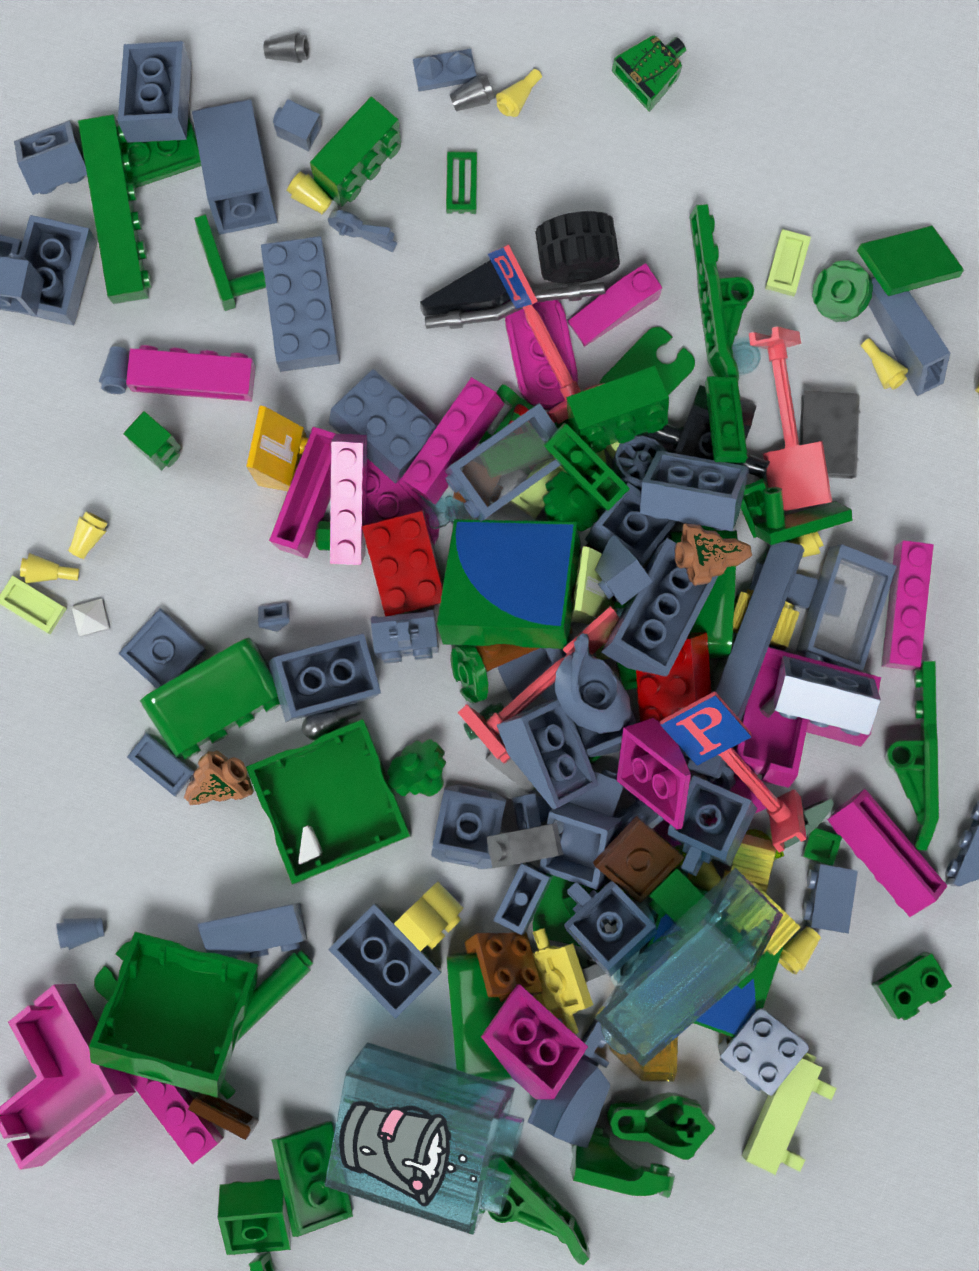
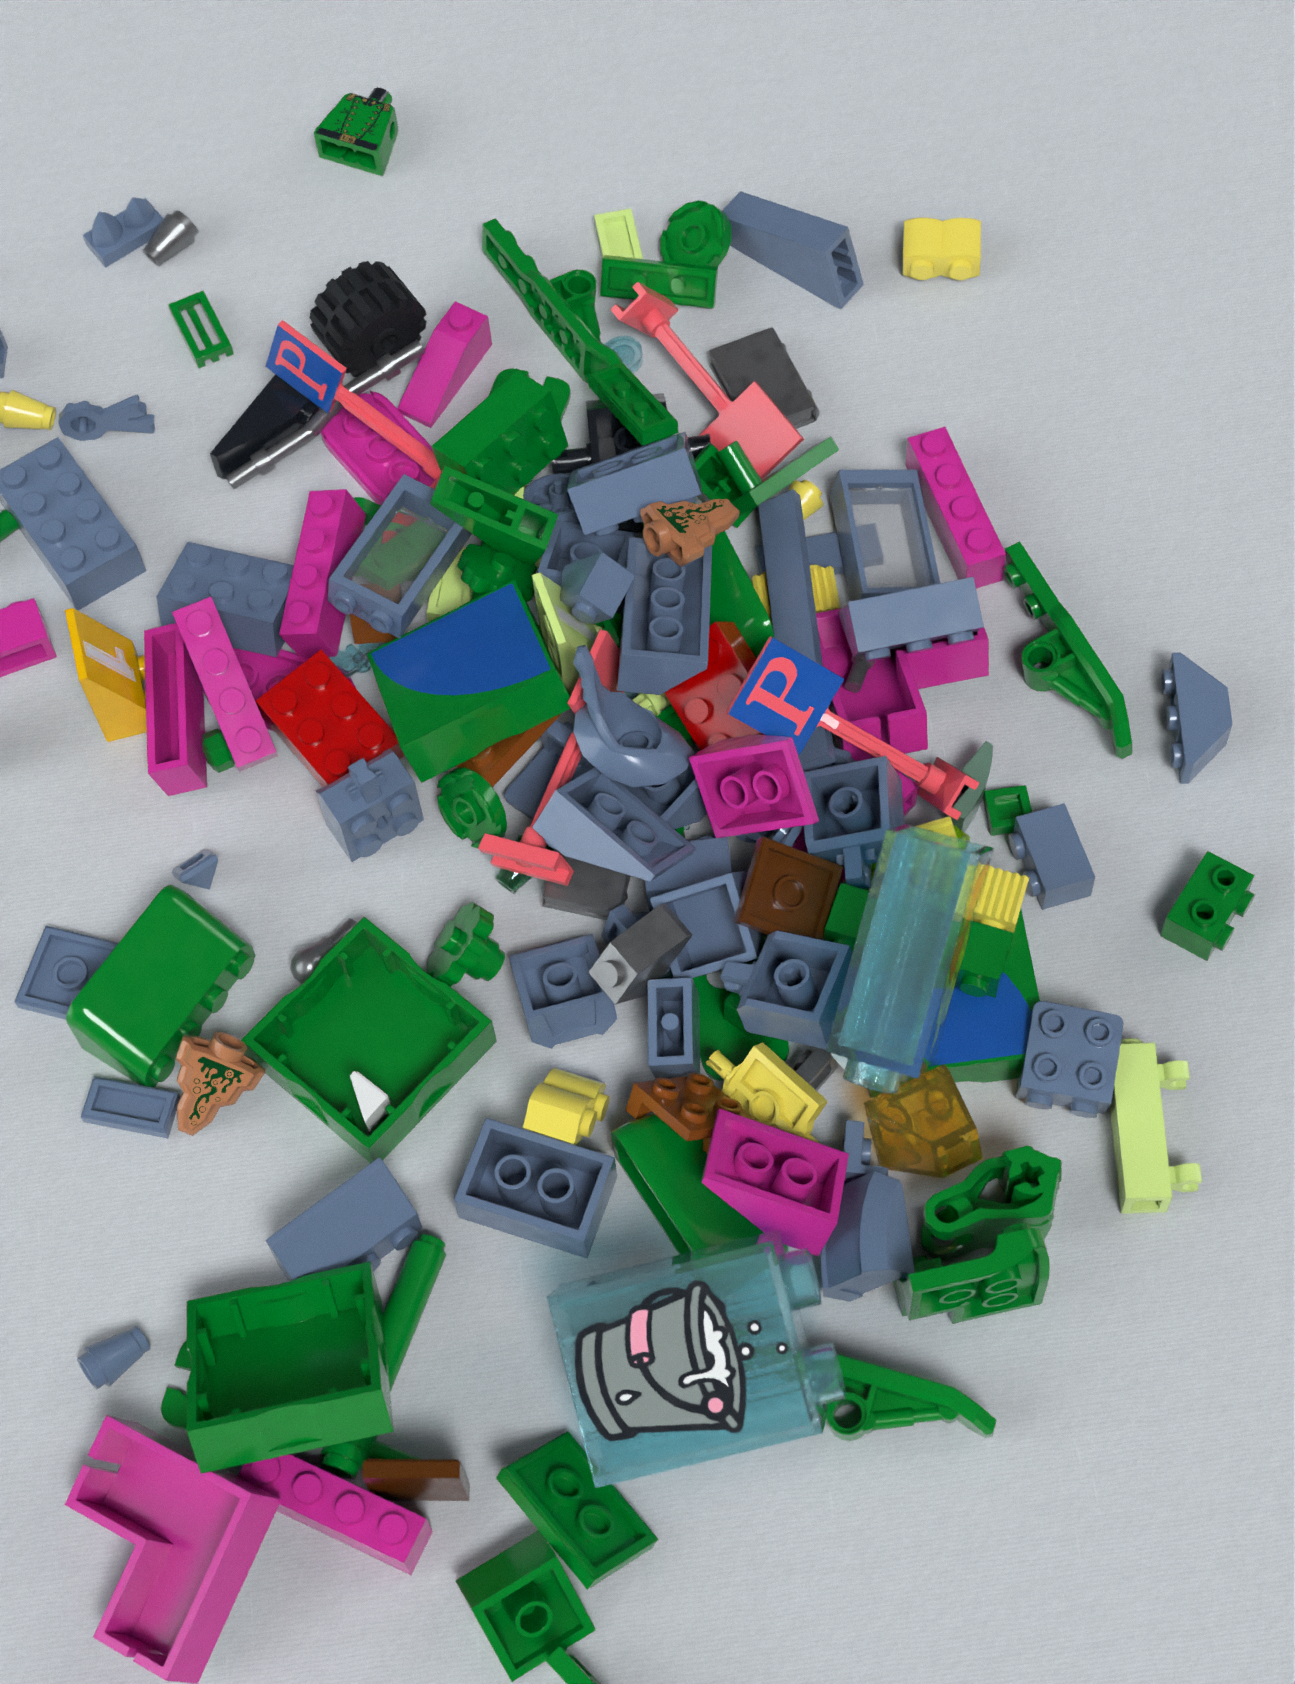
camera: 20 degrees left, 20 degrees down
(324, 677) = (292, 895): sand blue brick -> none
(357, 152) = (60, 339): green brick -> none
(514, 97) = (219, 222): light yellow cone -> none
(799, 311) = (677, 281): none -> green tile
(799, 950) = (1049, 935): light yellow cone -> none
(887, 853) = (1087, 772): dark pink brick -> none
(888, 369) = (794, 294): light yellow cone -> none
(910, 260) = (753, 176): green tile -> none

